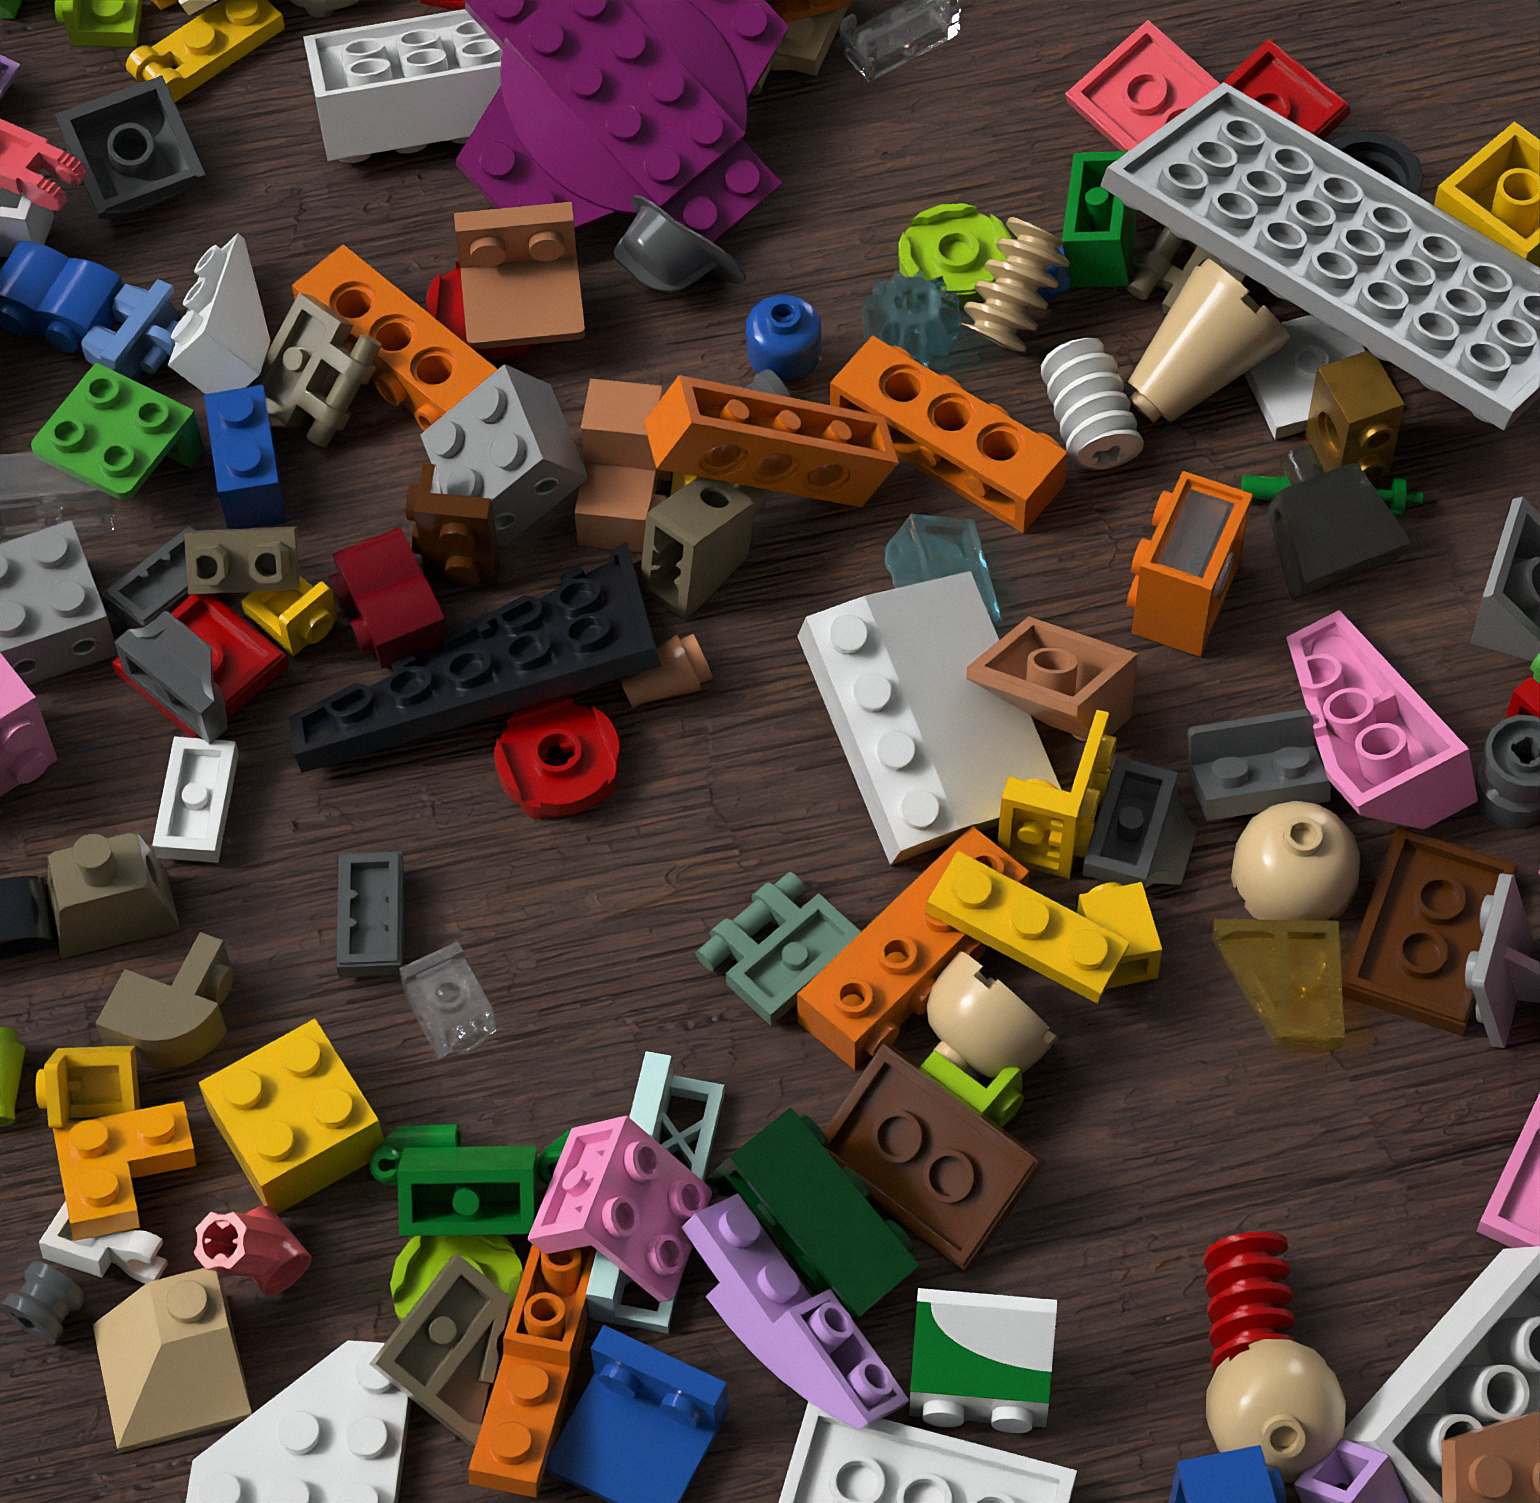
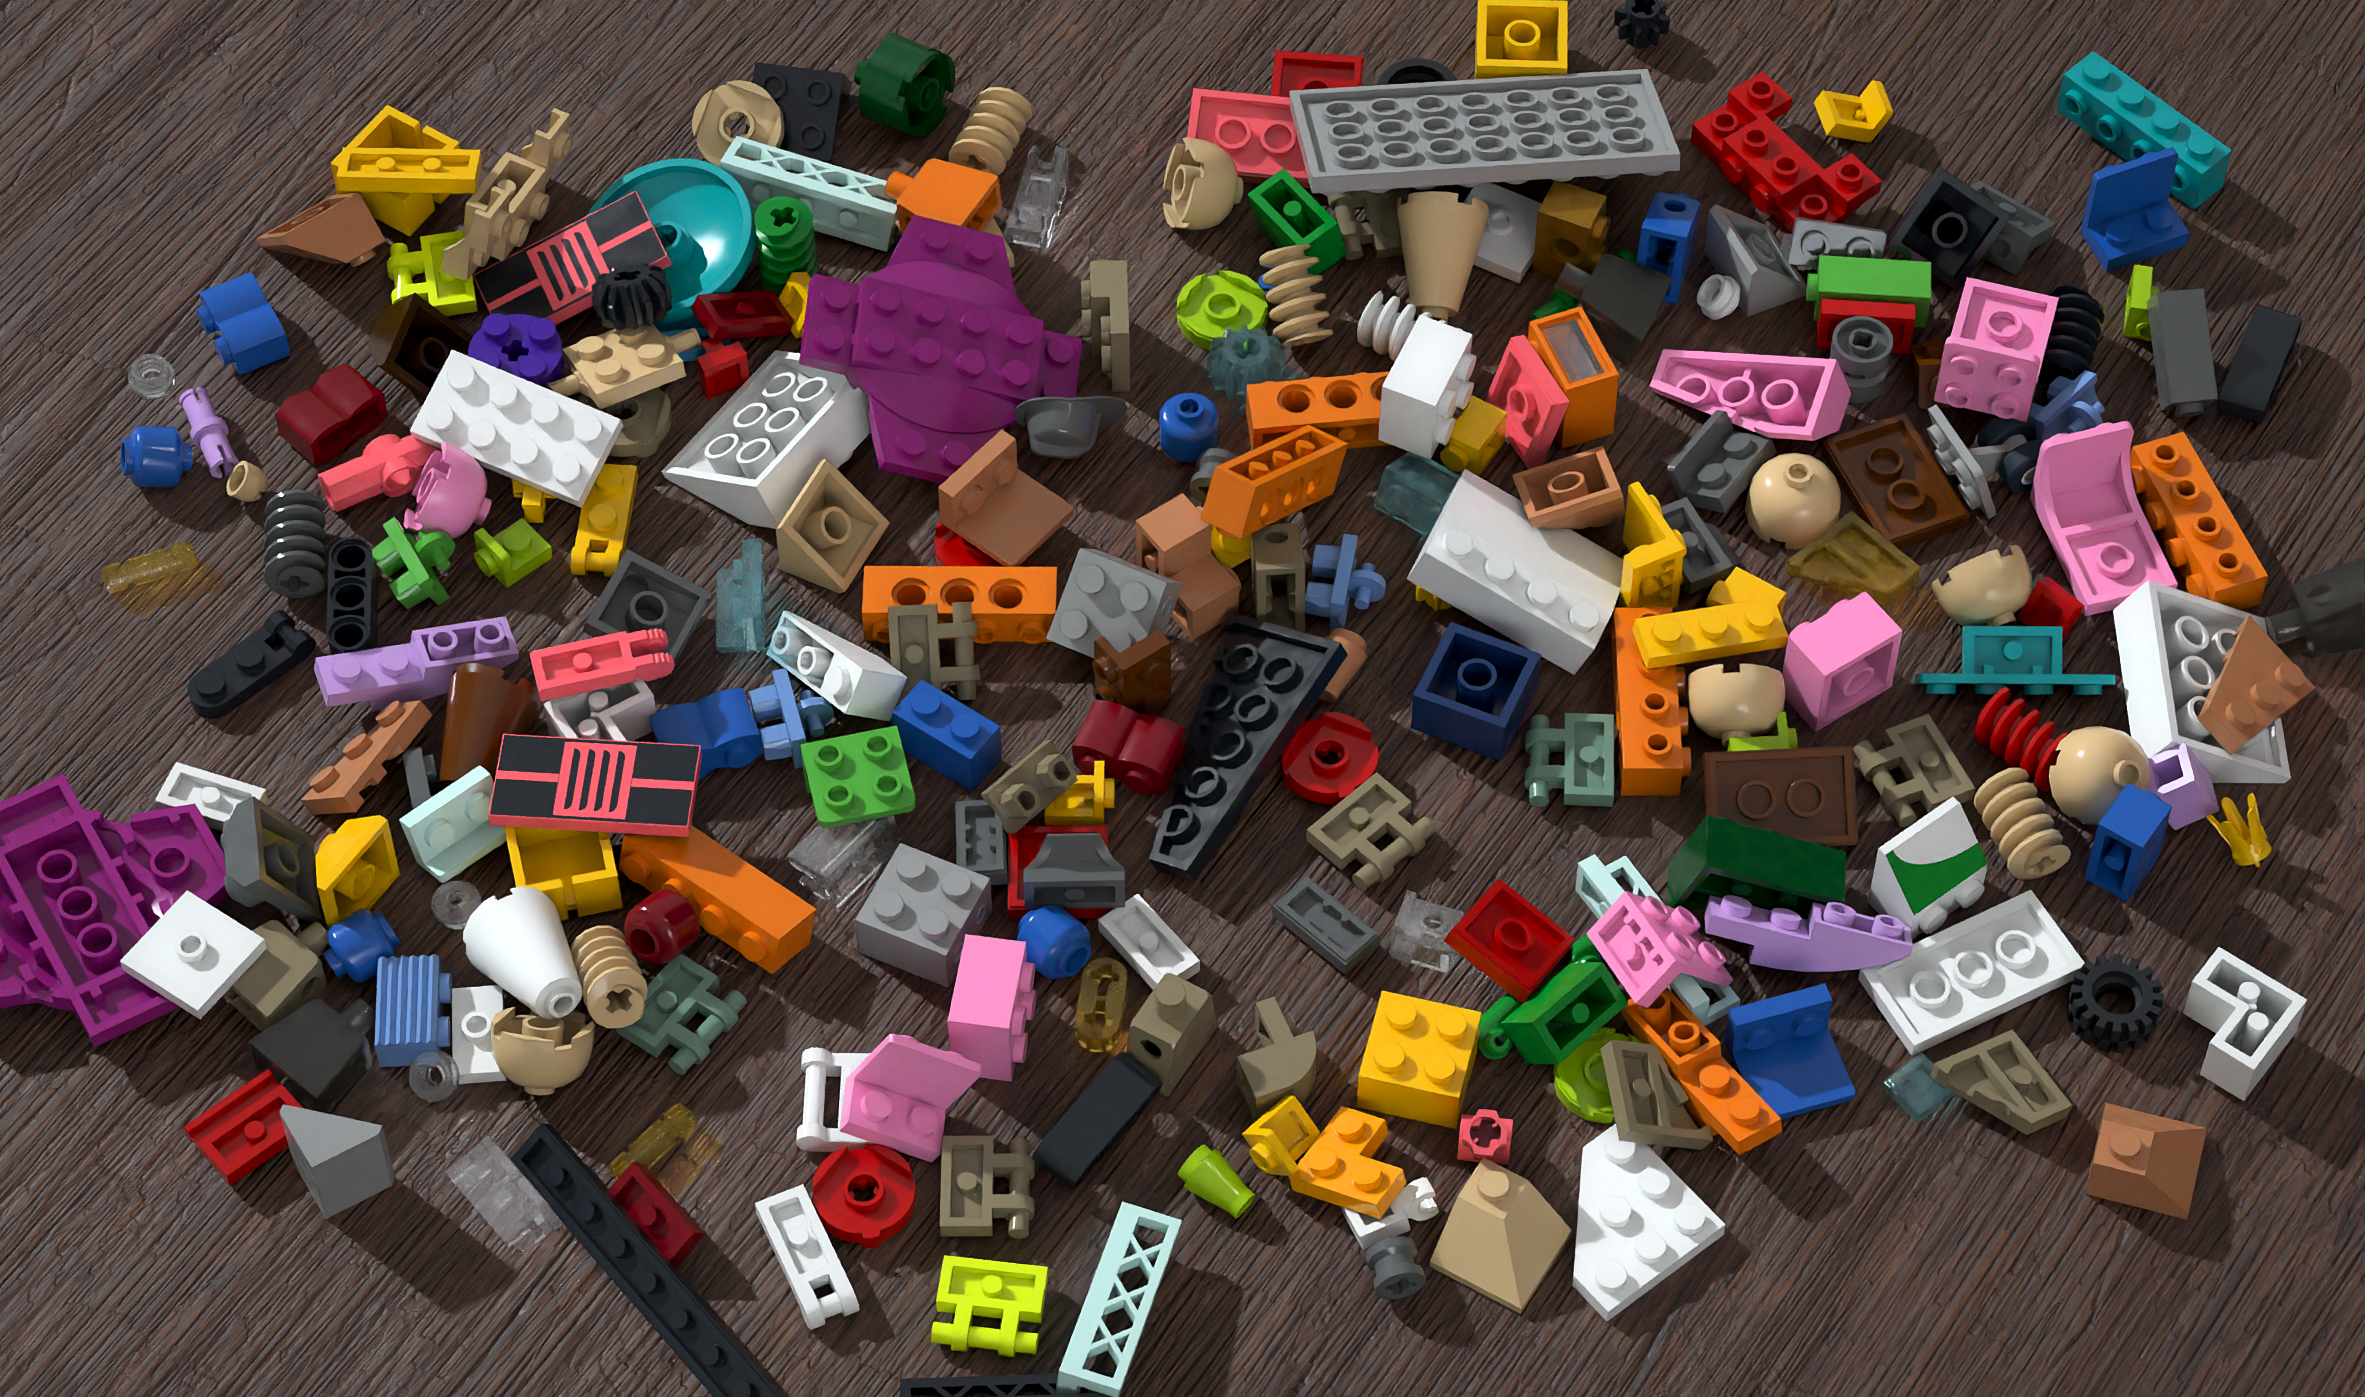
camera: 45 degrees left, 5 degrees down
(95, 813) = (1111, 1005): none -> clear yellow beam
(112, 725) = (1054, 941): none -> blue head
(225, 201) = (742, 602): none -> clear light blue bracket
(366, 188) = (828, 530): none -> tan slope
(505, 1074) = (1510, 940): none -> red plate
(513, 841) = (1360, 821): none -> dark tan plate
(752, 801) = (1475, 691): none -> dark blue brick
(763, 601) = (1340, 564): none -> medium blue hips
(821, 185) = (1108, 318): none -> dark tan plate
(1006, 458) = (1426, 387): none -> white brick
(1043, 553) = (1475, 437): none -> yellow brick
(1056, 119) = (1202, 185): none -> tan cylinder
(1118, 553) = (1531, 401): none -> coral tile
(1124, 1249) = (1925, 761): none -> dark tan plate
(1137, 1063) = (1840, 660): none -> bright pink brick
(1137, 1391) = (2020, 825): none -> tan piece
(1336, 1214) = (2012, 657): none -> teal bracket
(1383, 1117) = (1986, 589): none -> tan cylinder
(1436, 1196) = (2051, 606): none -> red tile
(1452, 502) = (1671, 228): none -> blue torso
(1452, 599) = (1719, 296): none -> white plate

